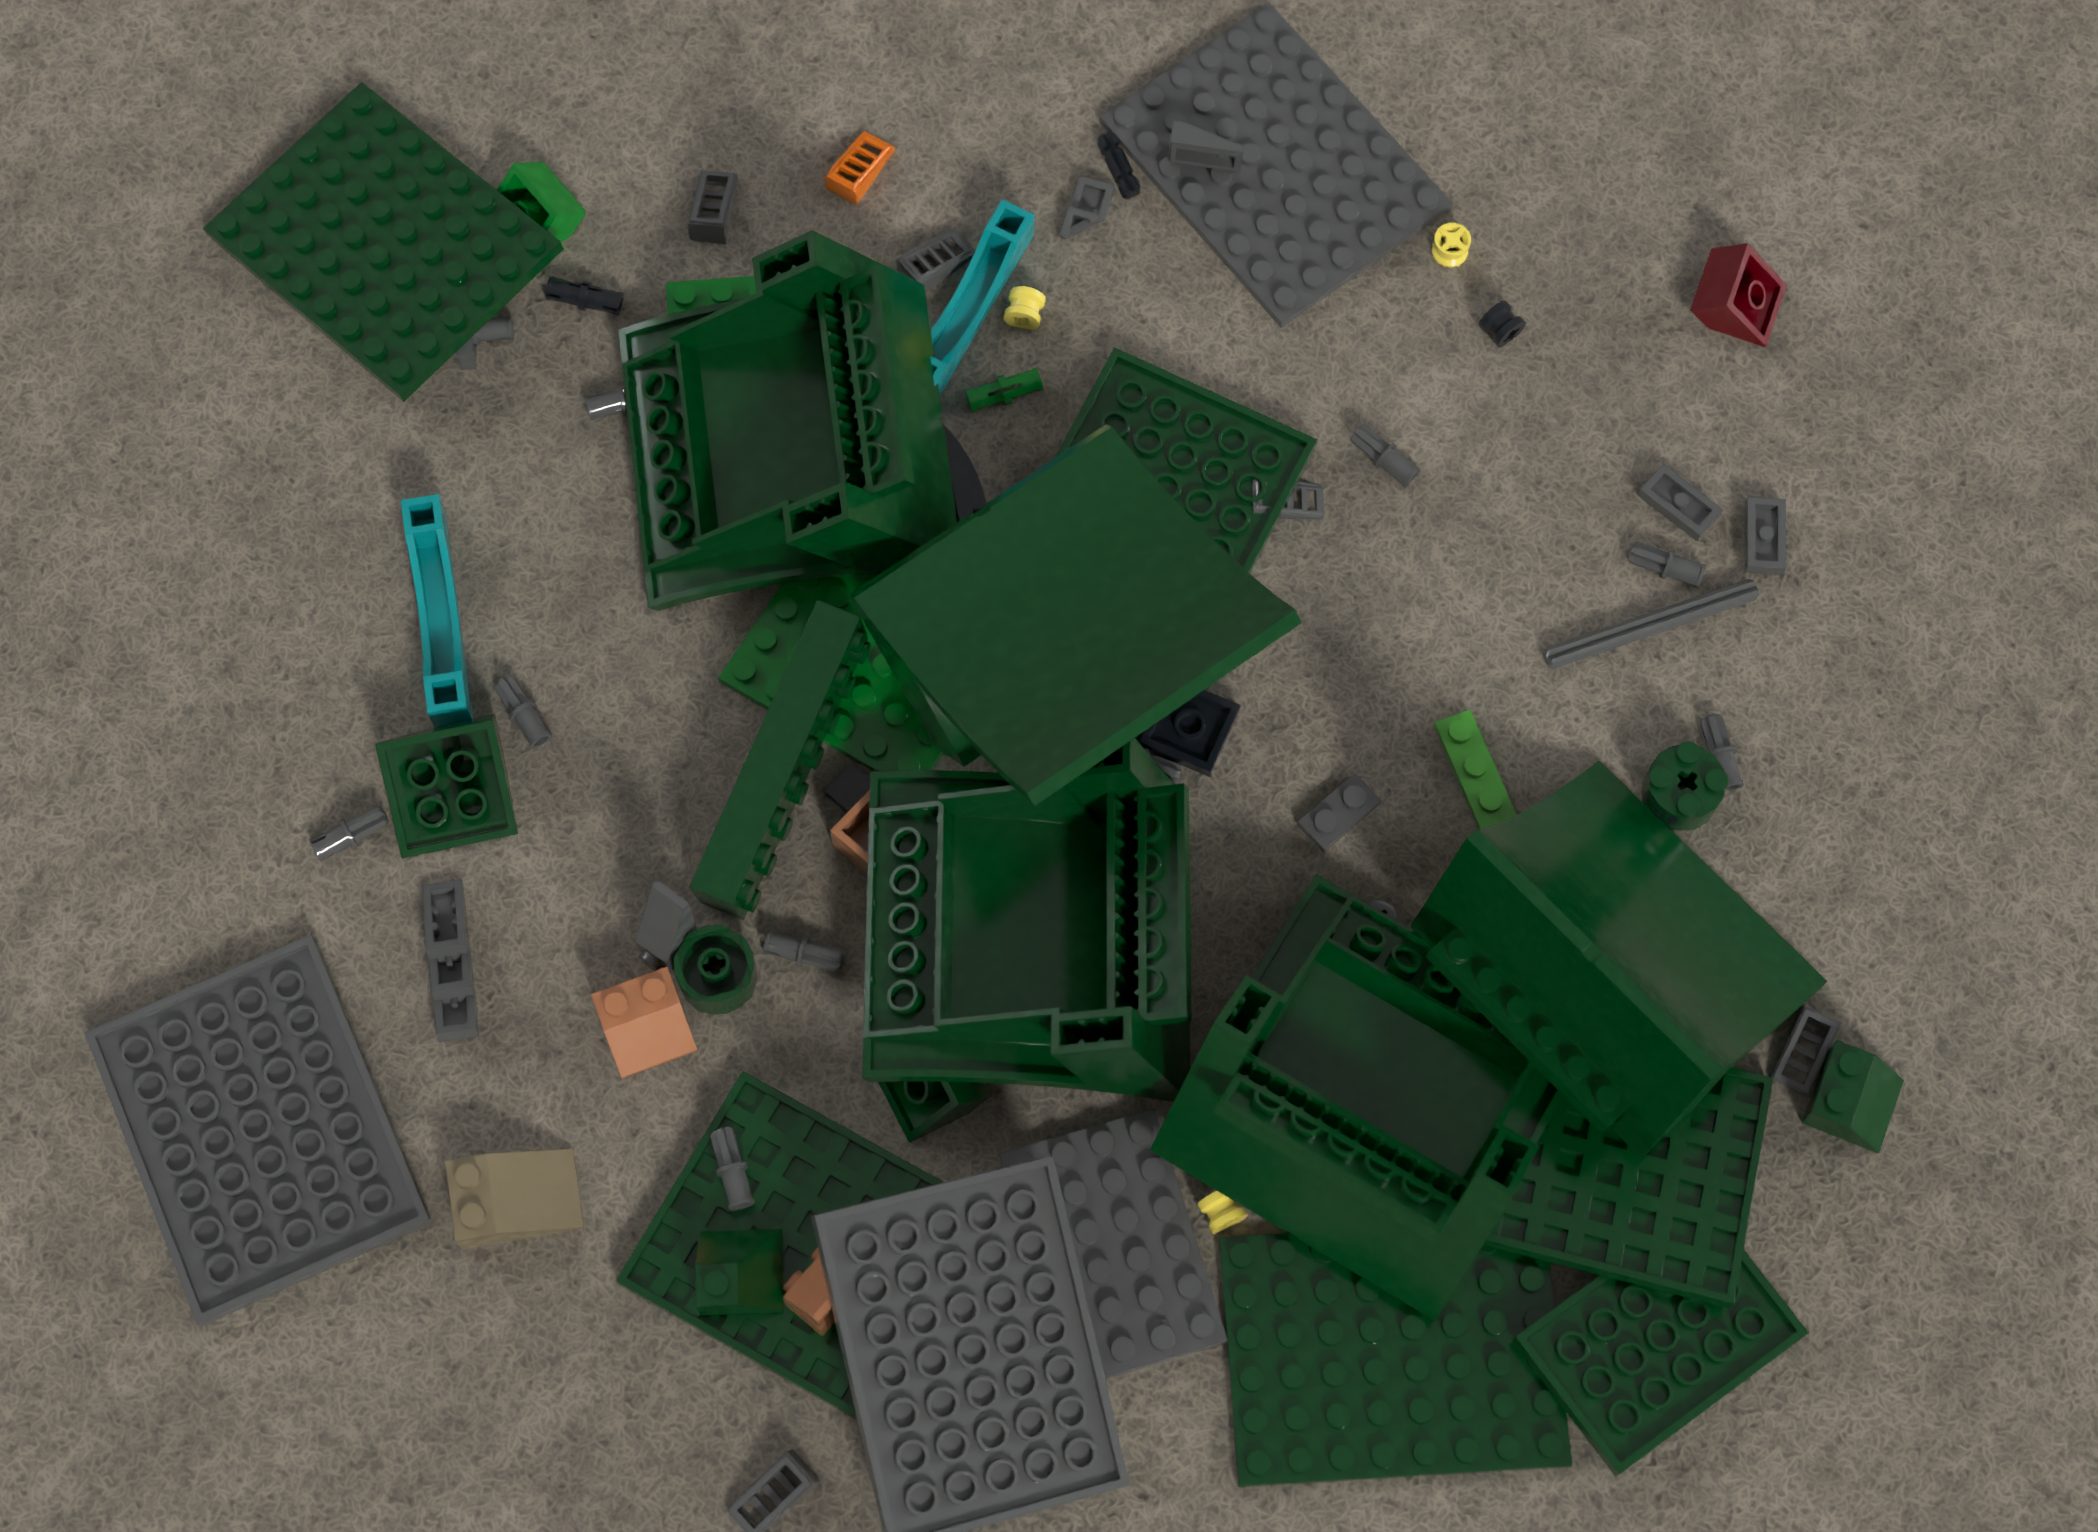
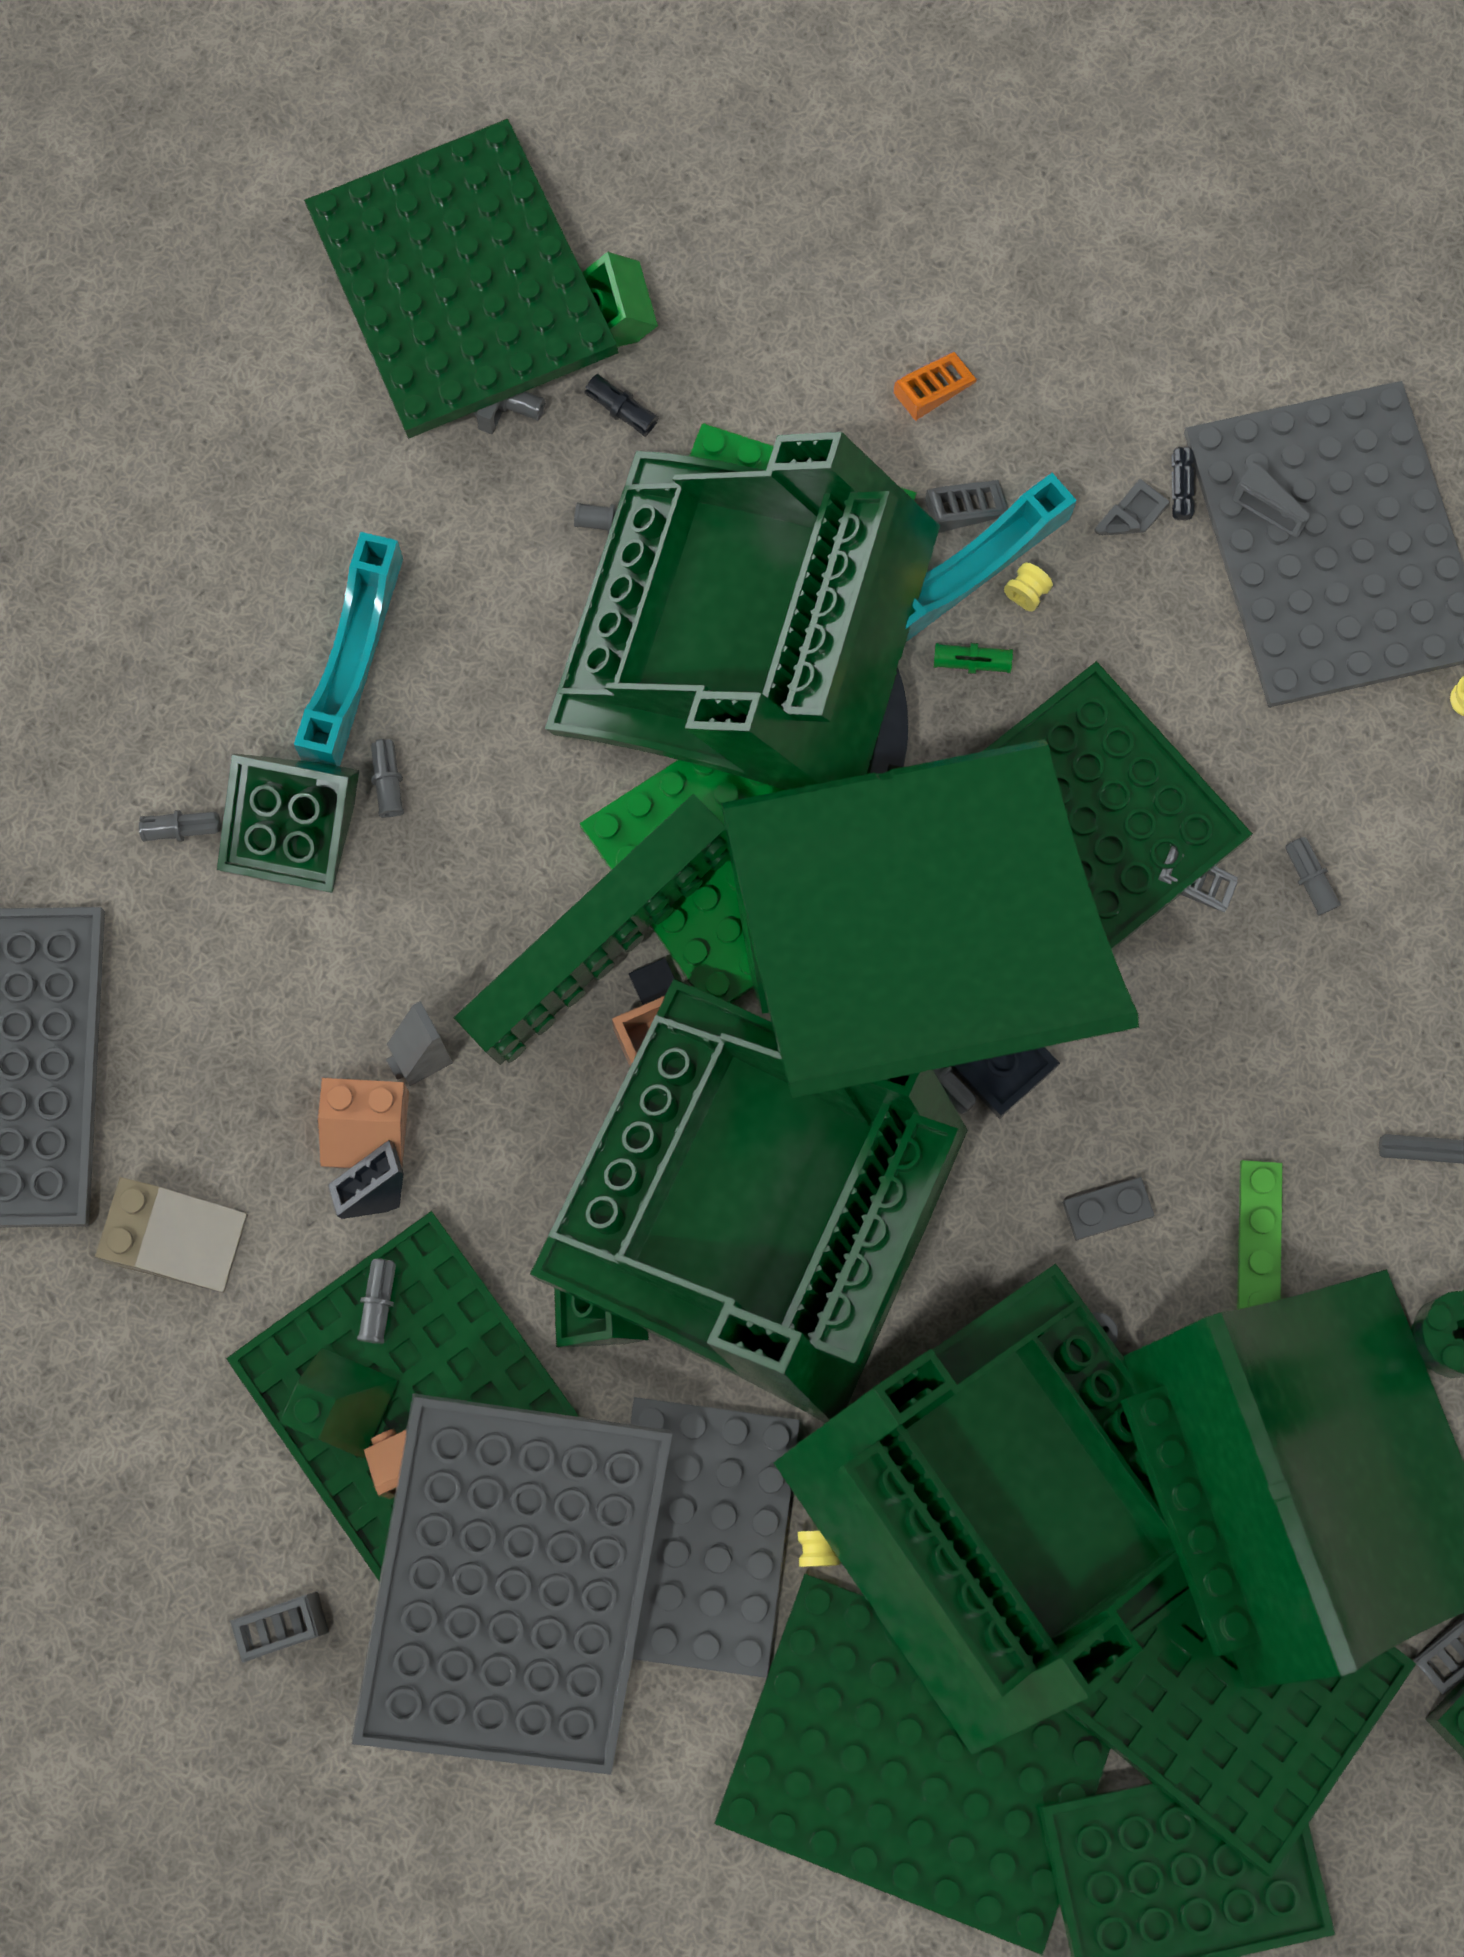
camera: 25 degrees right, 5 degrees up
(450, 961) = (215, 986): dark grey slope -> none
(676, 1073) = (369, 1185): none -> black slope
(693, 970) = (435, 1086): dark green brick -> none
(710, 227) = (769, 387): dark grey slope -> none
(803, 950) = (540, 1119): dark grey axle -> none

